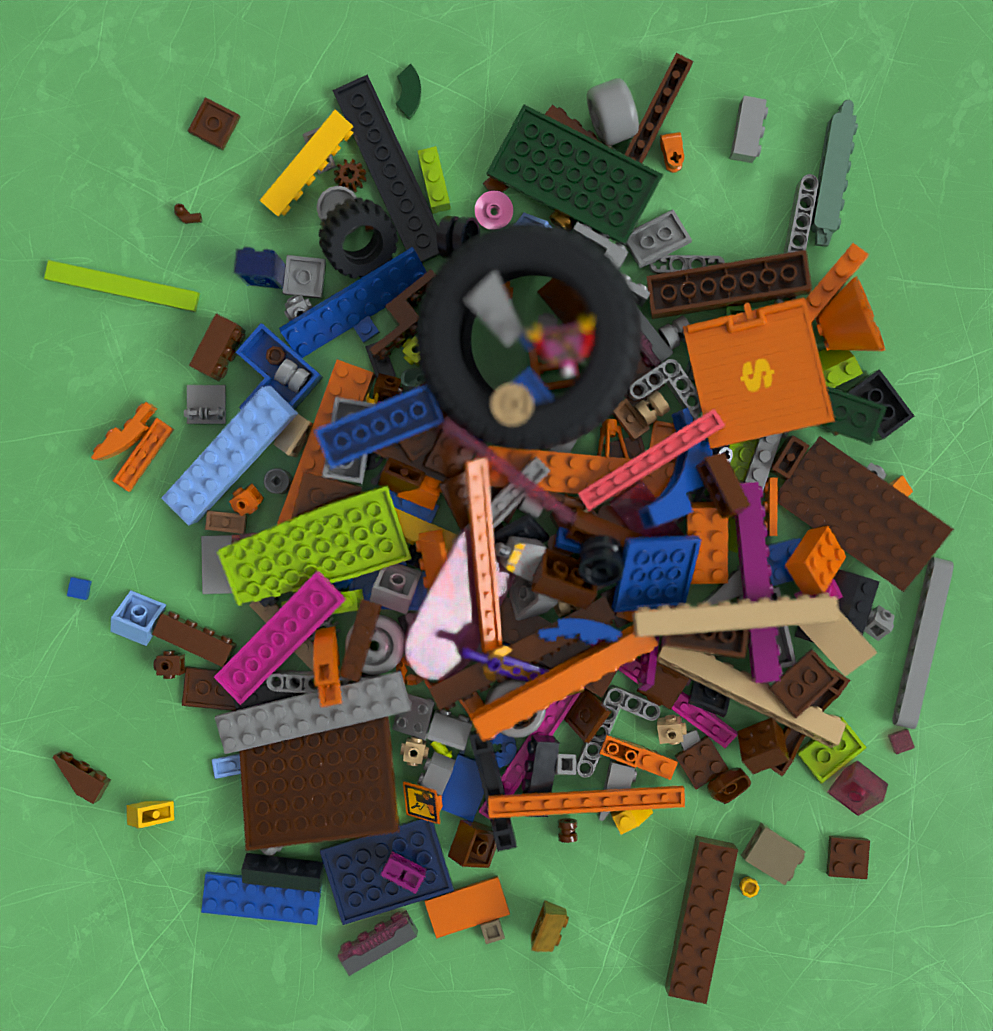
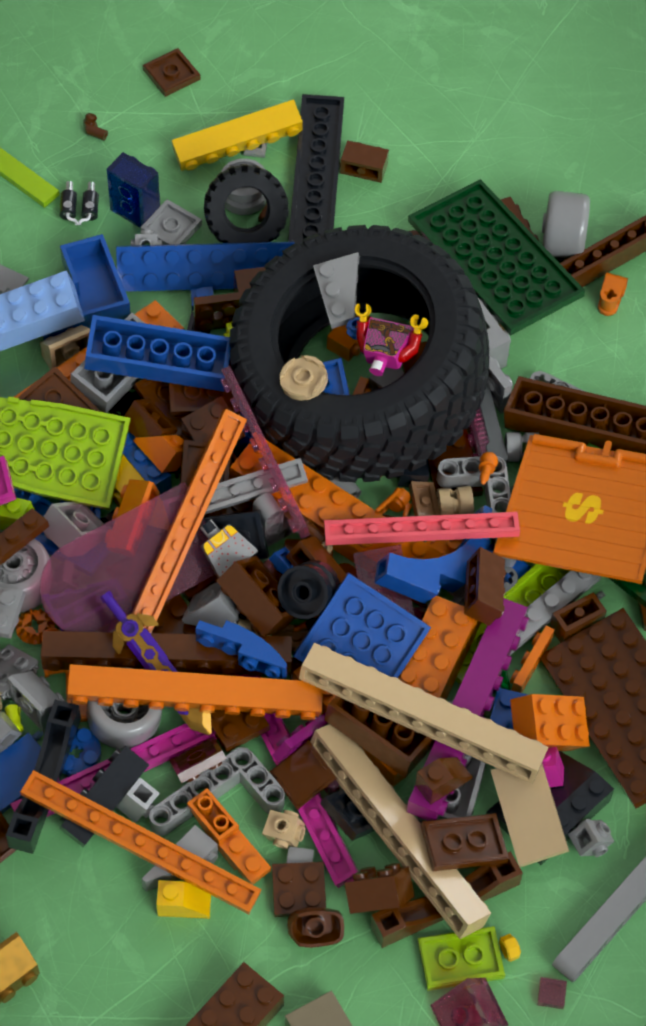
camera: 25 degrees right, 30 degrees down
(218, 347) = (40, 237): reddish brown brick -> none
(229, 291) = (89, 204): none -> black piece
(275, 355) = (96, 273): reddish brown tile -> none
(278, 481) = (20, 375): dark grey wheel -> none
(290, 375) = (99, 291): light grey wheel -> none
(357, 173) = (276, 163): reddish brown gear -> none
(411, 91) = (378, 129): dark green tile -> none
(418, 129) = (364, 161): none -> reddish brown brick
(434, 179) = (354, 200): lime brick -> none
(567, 830) = (98, 878): reddish brown wheel -> none
(657, 239) = (550, 358): light grey tile -> none
(666, 371) = (488, 463): none -> orange bar
(774, 656) = (441, 778): none -> reddish brown slope
(861, 727) = (510, 947): none -> yellow tile

